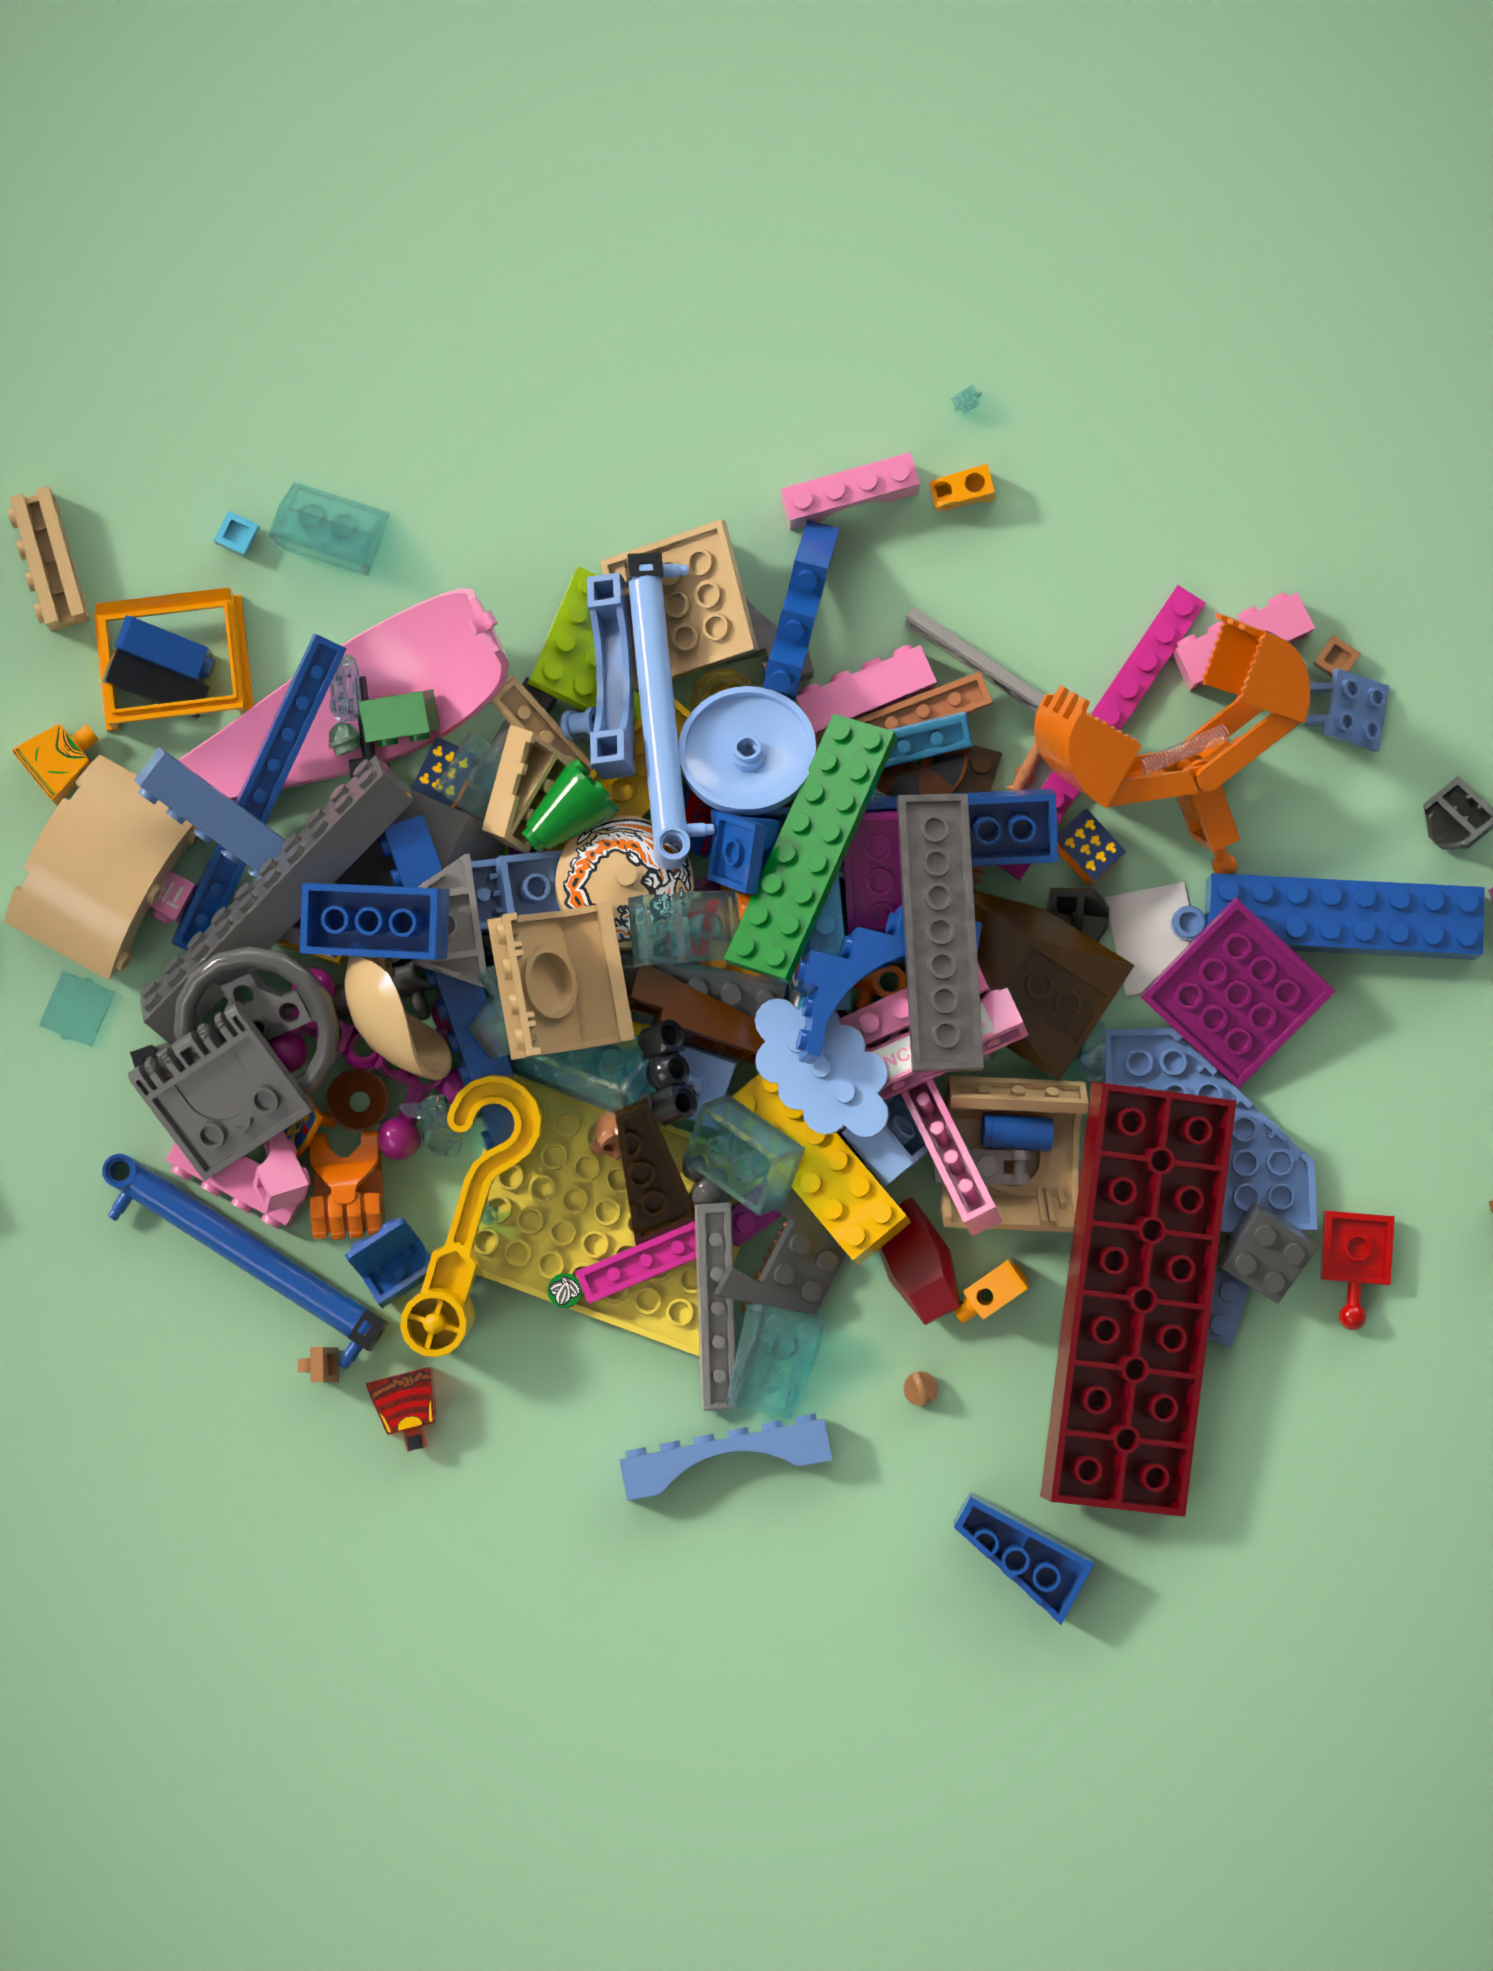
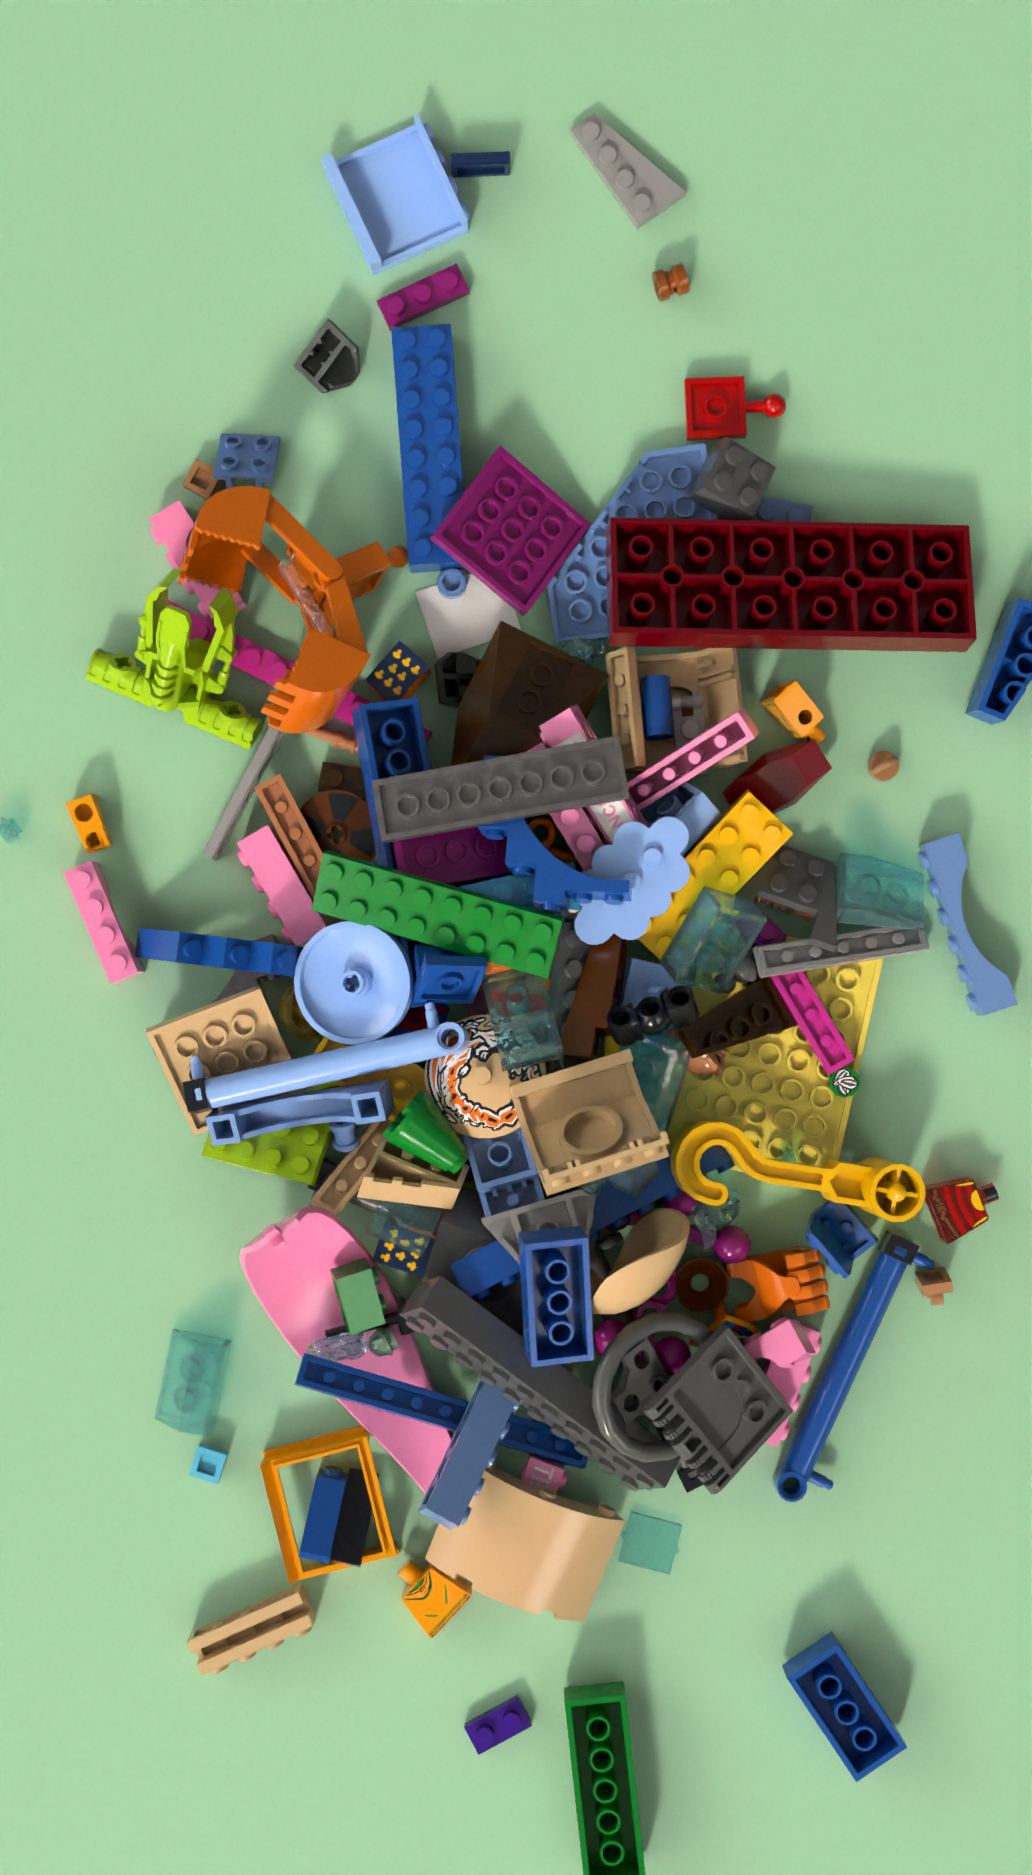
camera: 90 degrees left, 5 degrees up
(930, 738) = (318, 823): dark azure tile -> none
(1116, 606) = (181, 670): none -> lime piece

